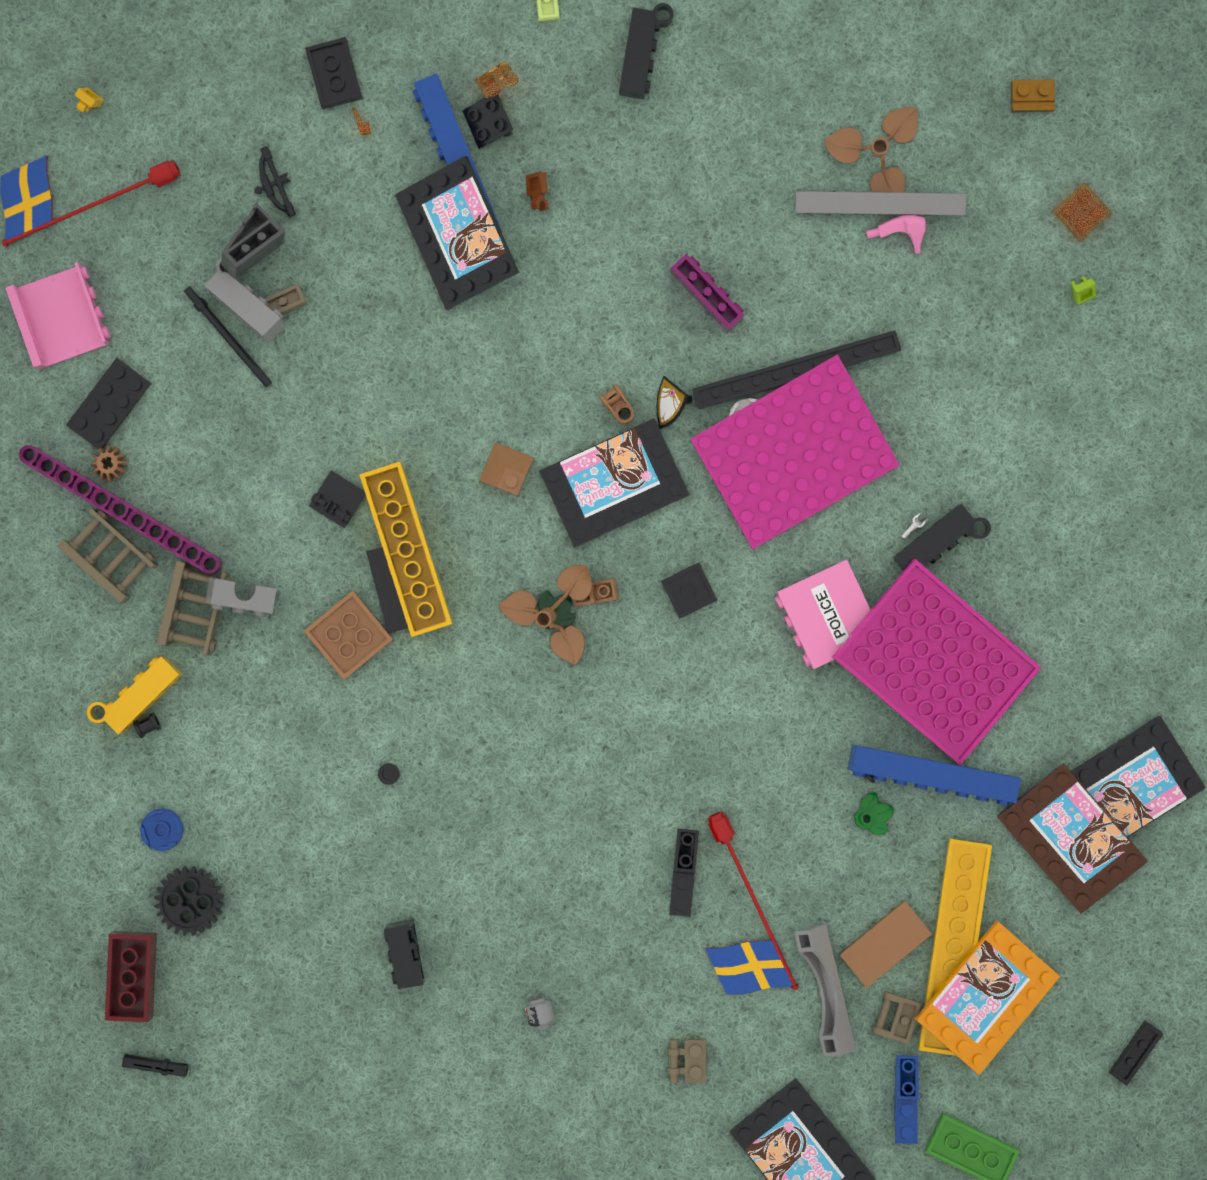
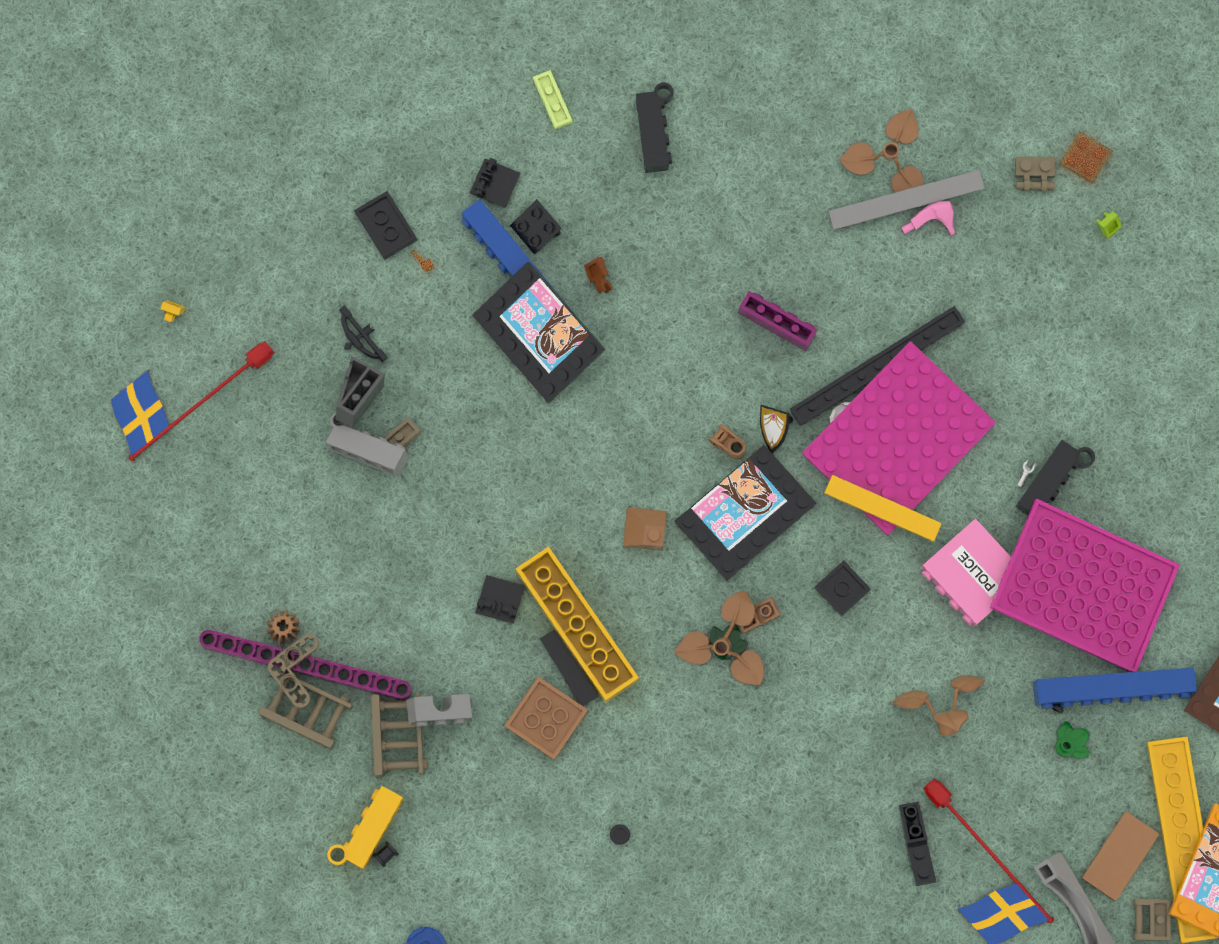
camera: 20 degrees left, 10 degrees down
(59, 317) = (200, 508): bright pink panel -> none
(98, 507) = (287, 665): none -> dark tan beam
(108, 404) = (266, 574): black plate -> none
(202, 306) = (326, 462): black bar -> none
(459, 60) = (495, 182): none -> black hinge
(491, 84) = (531, 194): clear orange plate -> none
(752, 760) = (948, 721): none -> medium nougat plant
(754, 521) = (882, 508): none -> yellow tile
(1024, 207) = (1035, 168): none -> dark tan plate
(1033, 95) = (1010, 70): pearl gold plate -> none

